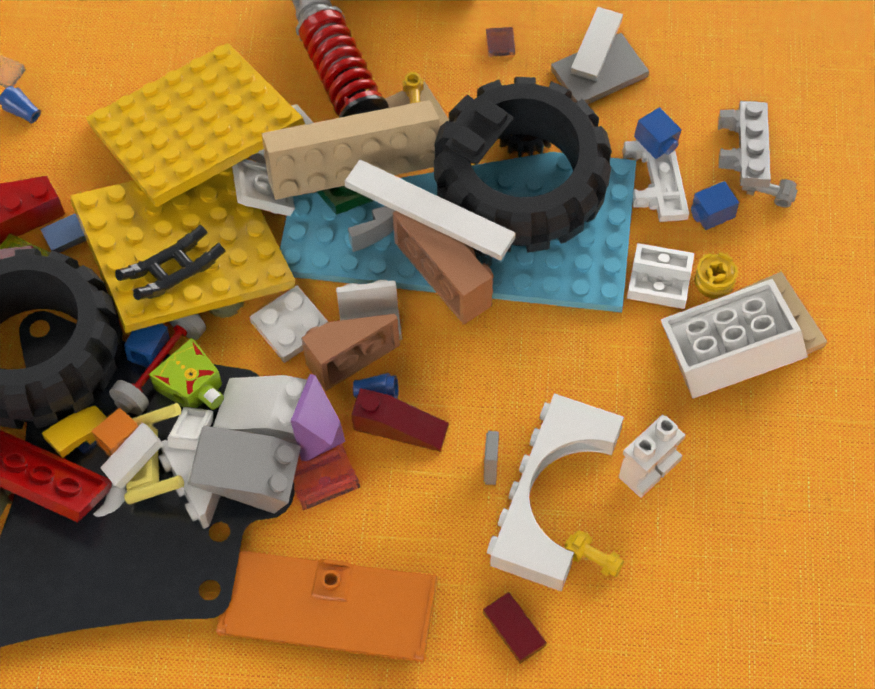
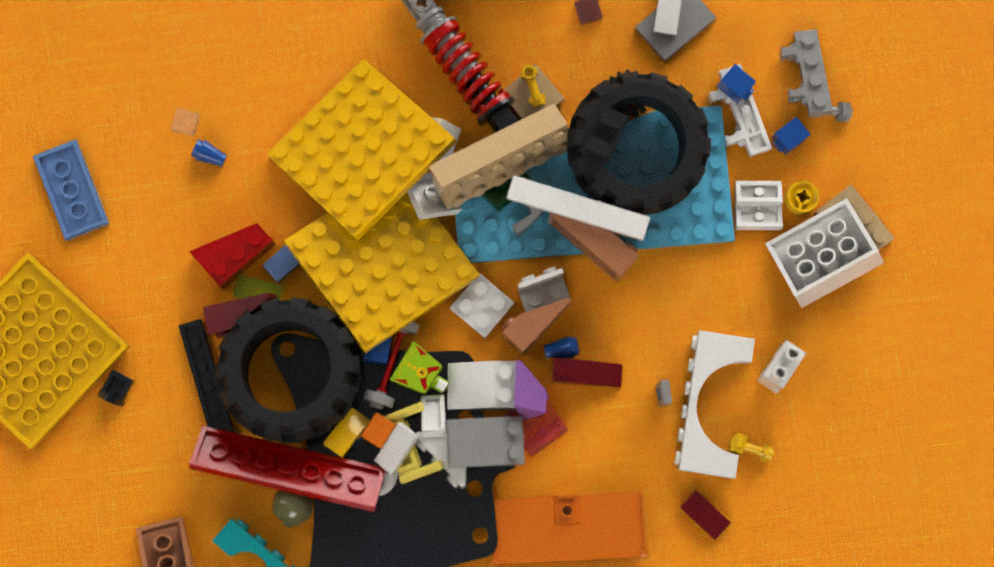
camera: 15 degrees left, 20 degrees up
(177, 252) = (385, 277): black piece -> none

